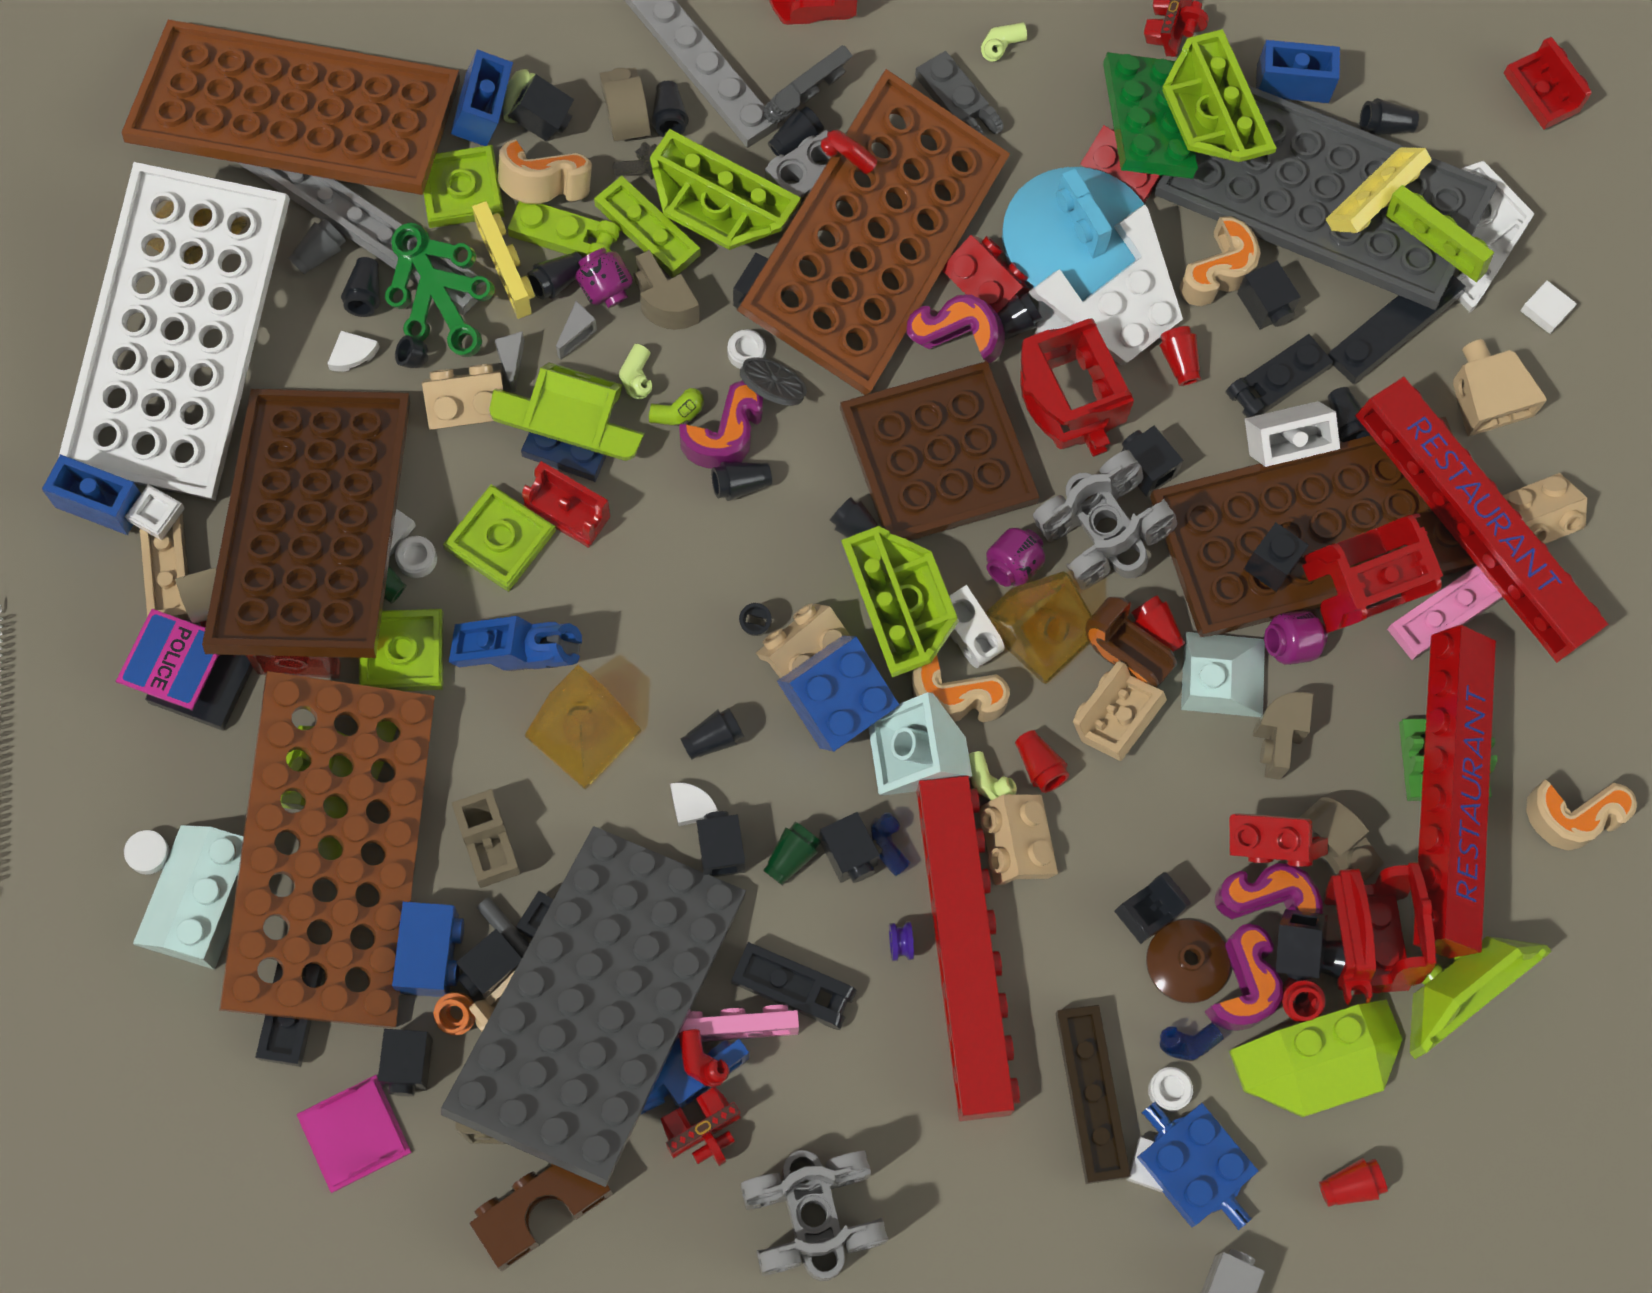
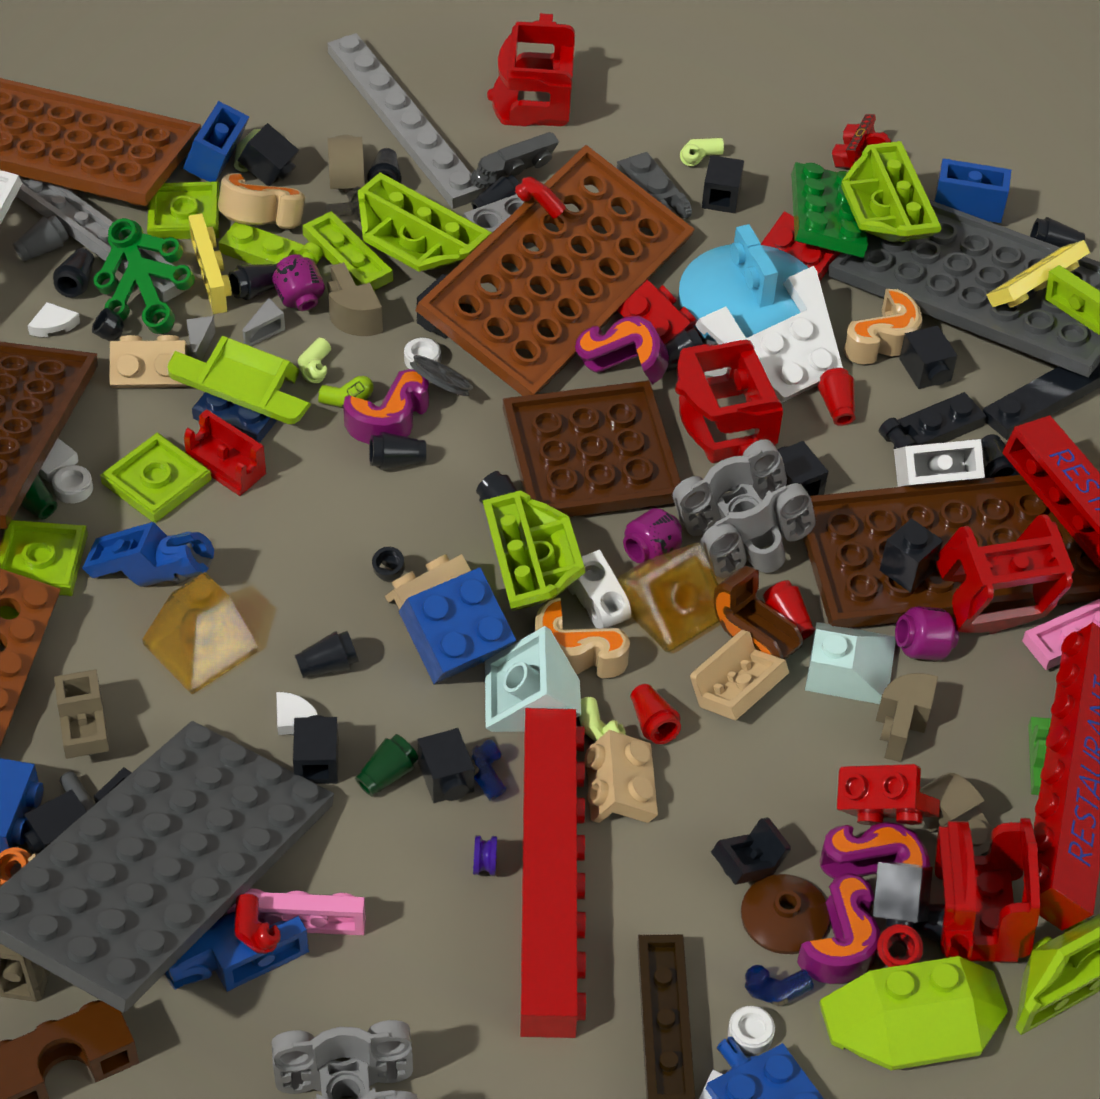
camera: 10 degrees right, 20 degrees down
(718, 1116) = (245, 1008): red hips -> none
(792, 985) = (350, 872): black plate -> none
(1032, 87) = (722, 184): none -> black brick

